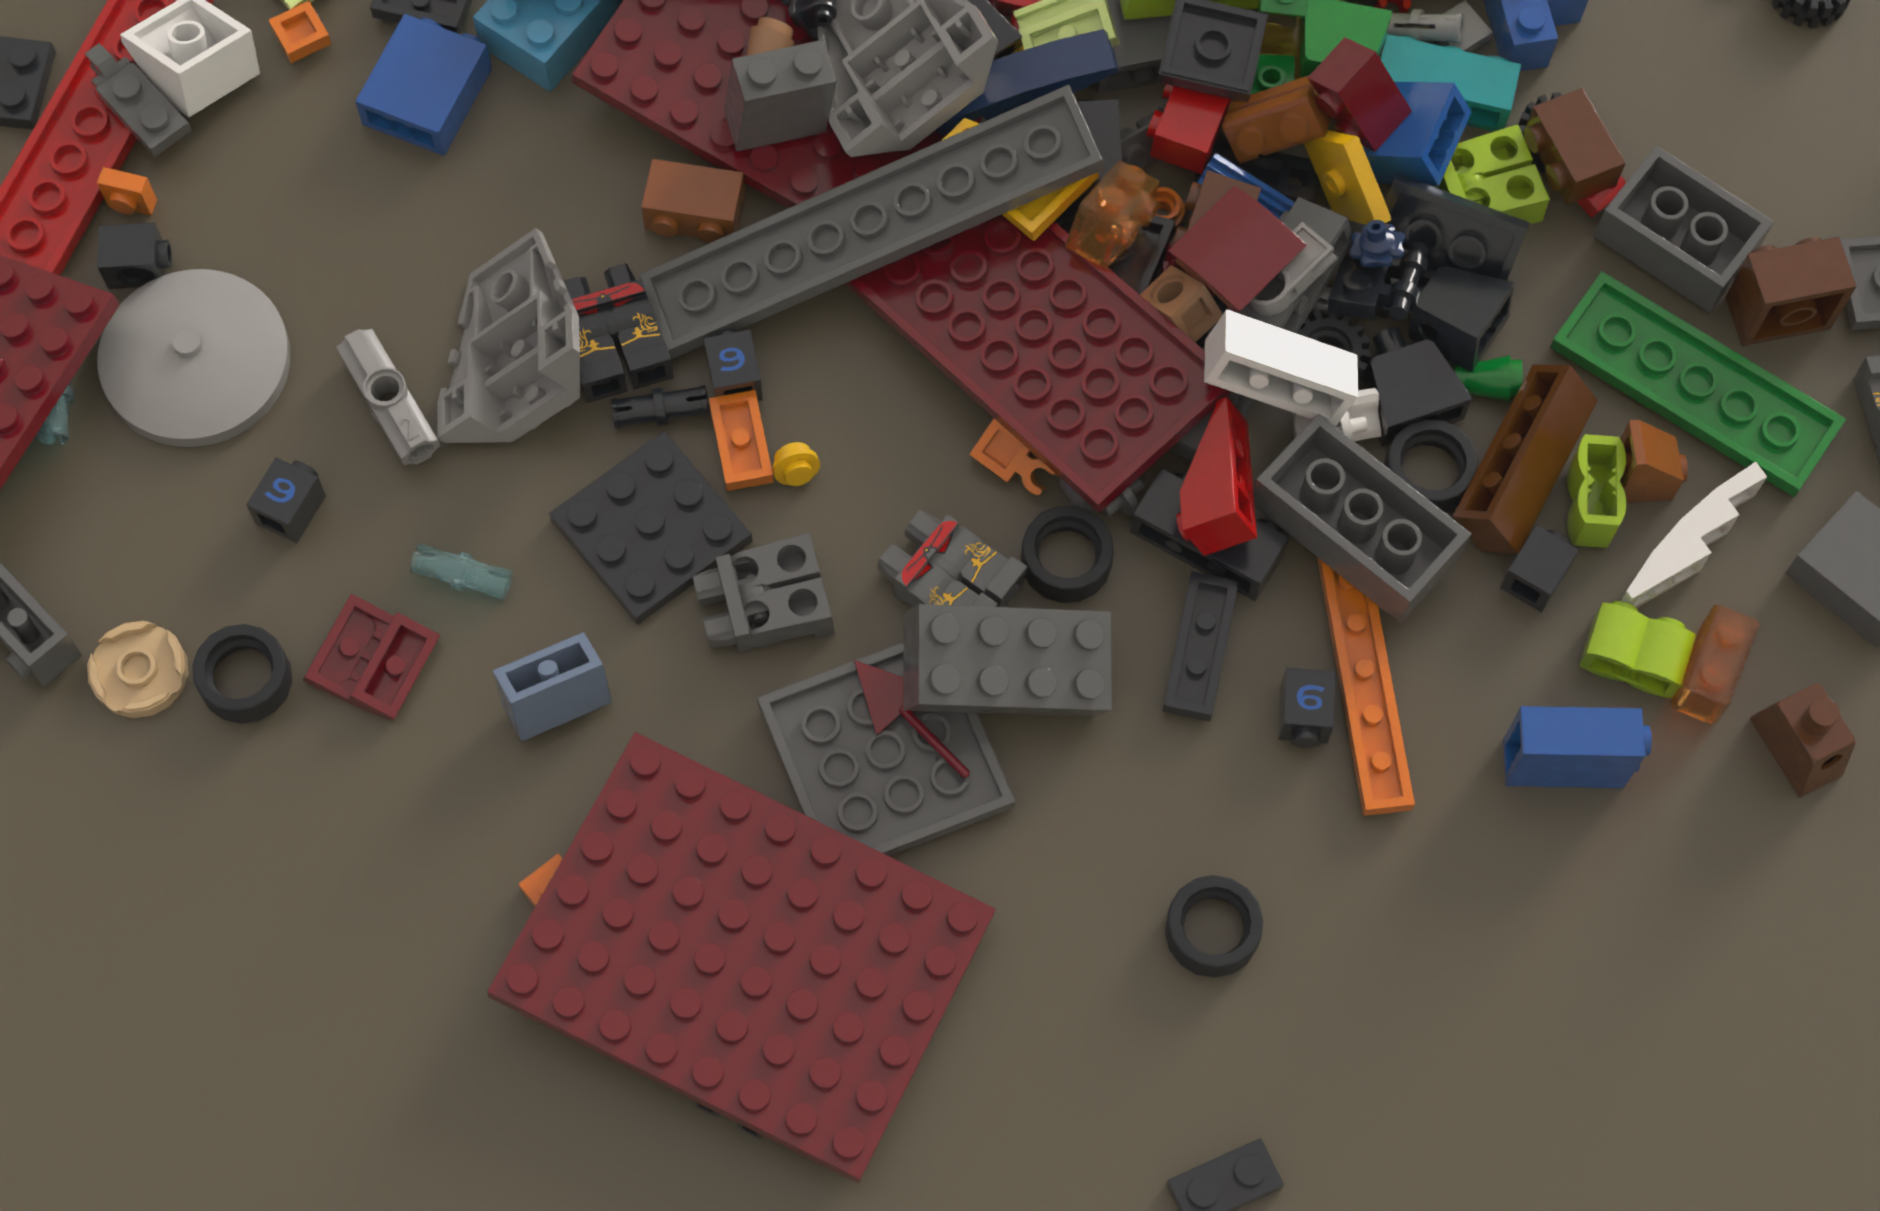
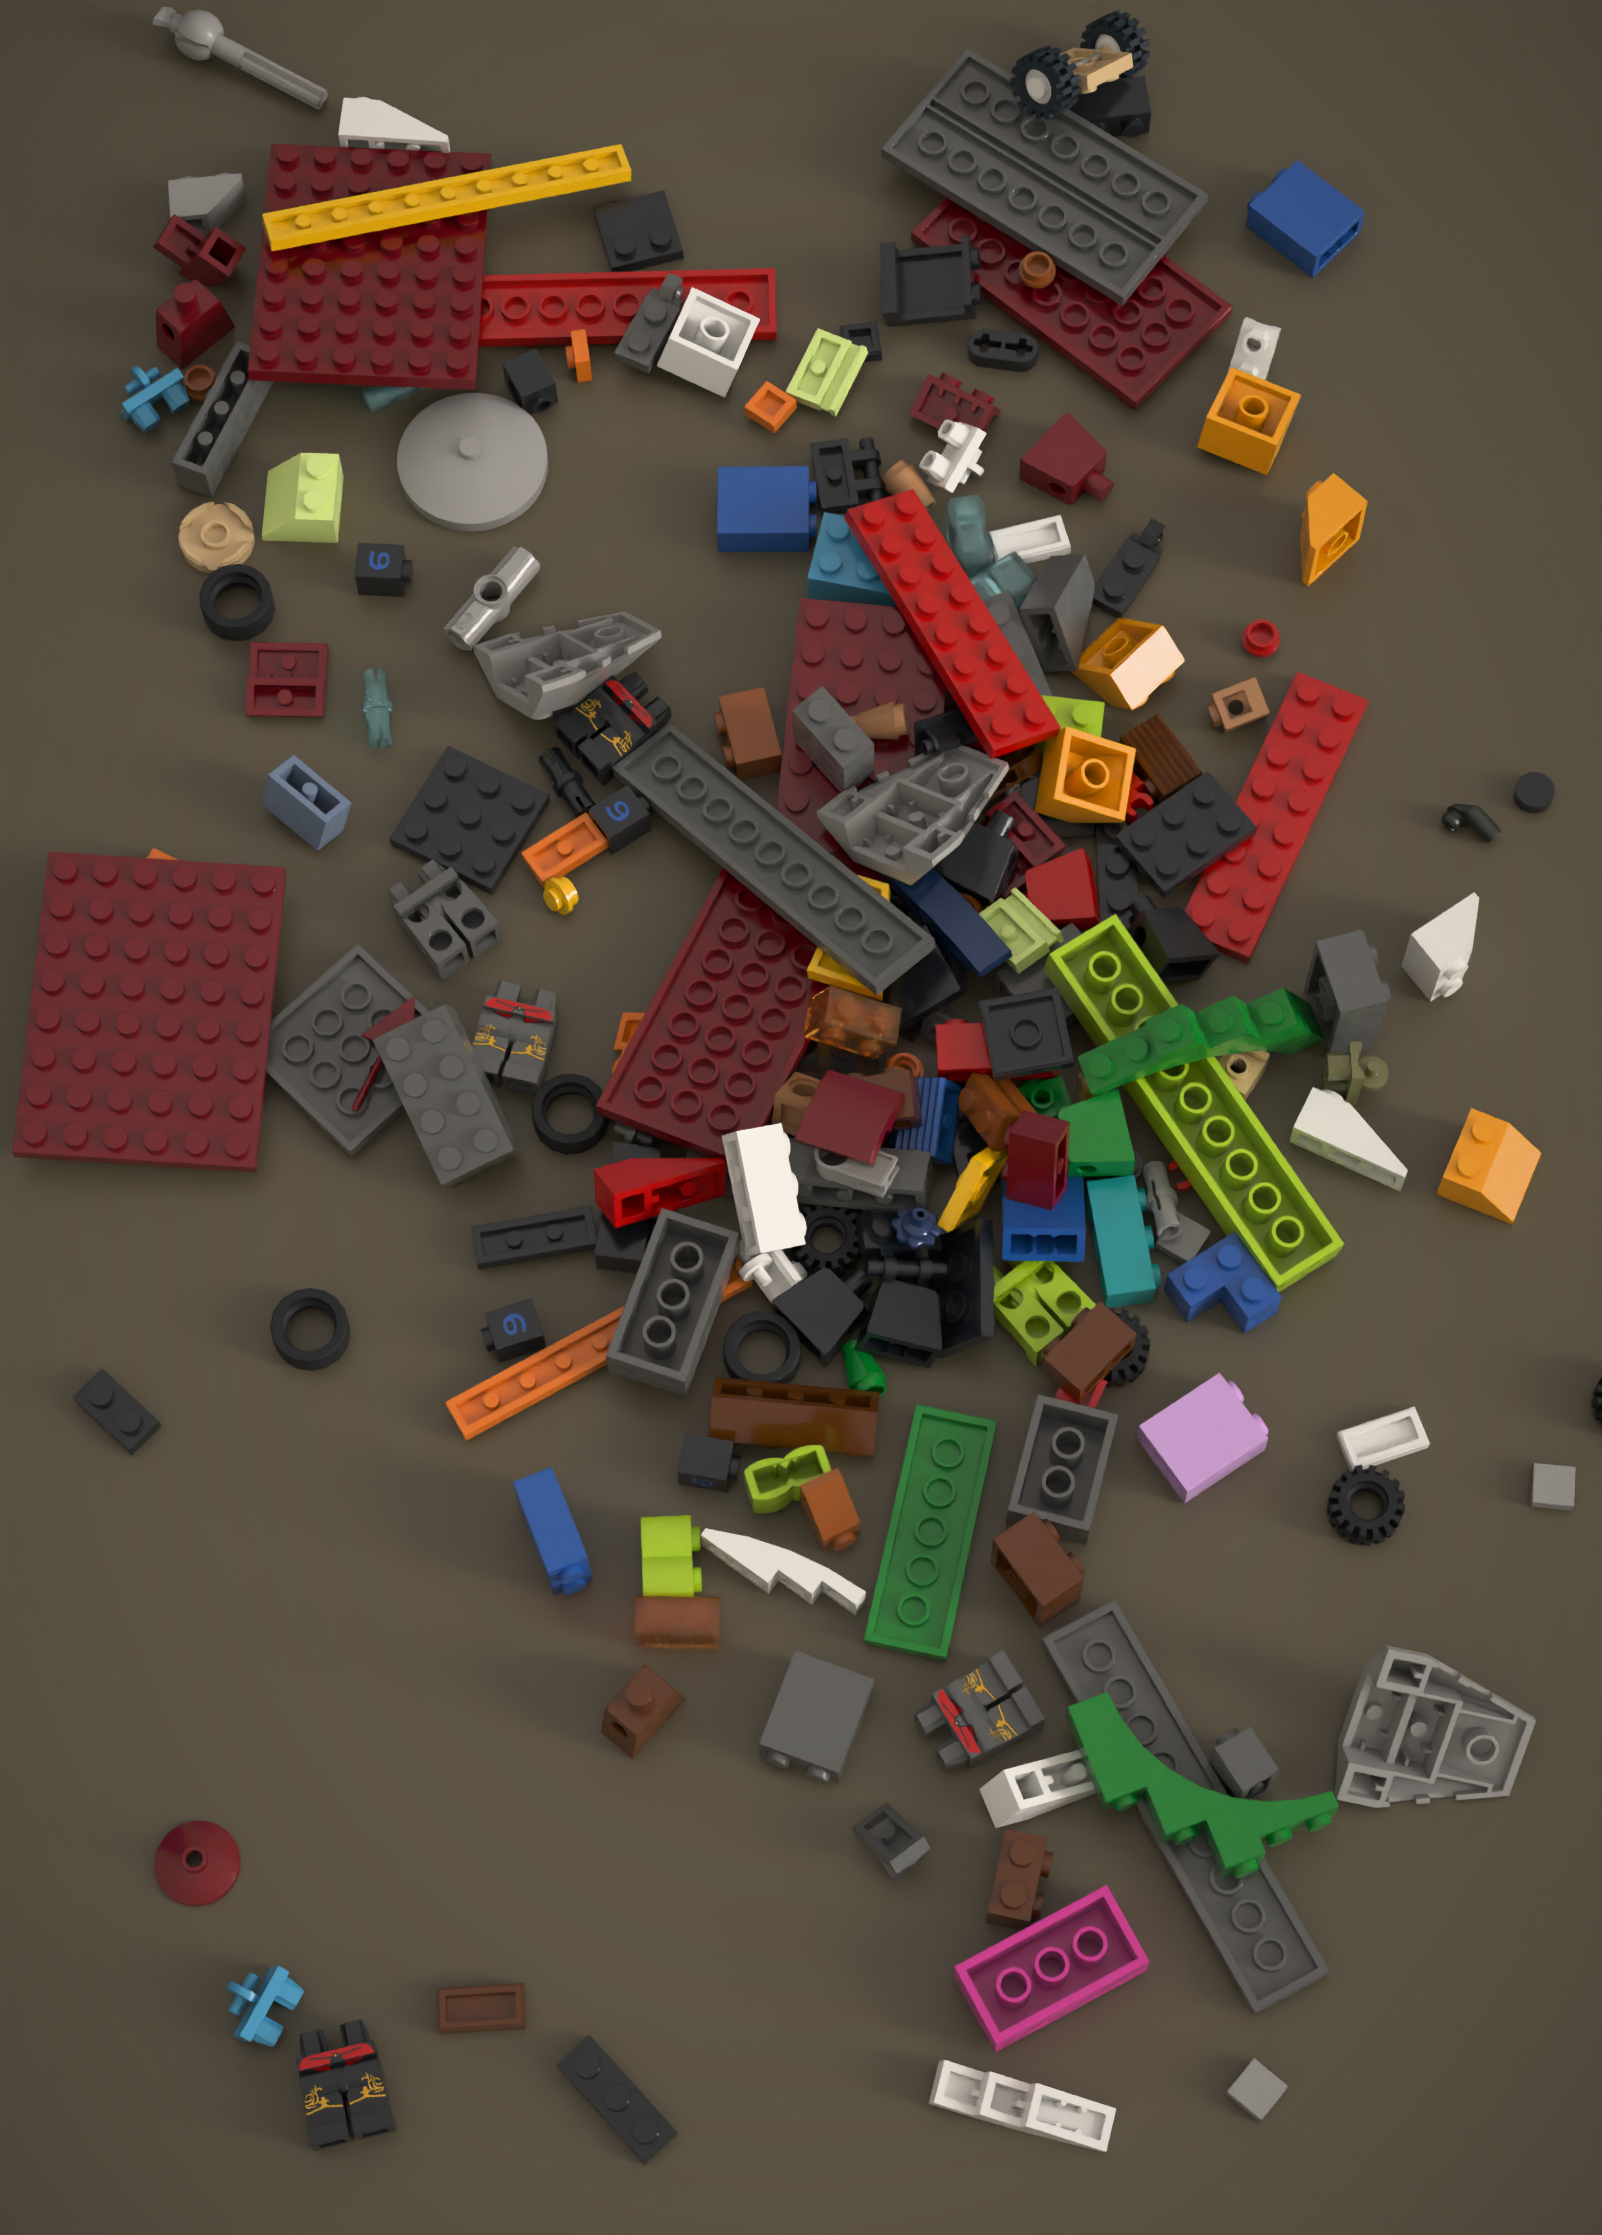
camera: 70 degrees right, 0 degrees up
(146, 551) = (304, 499): none -> yellowish green slope
(1690, 93) = (1203, 1437): none -> lavender brick

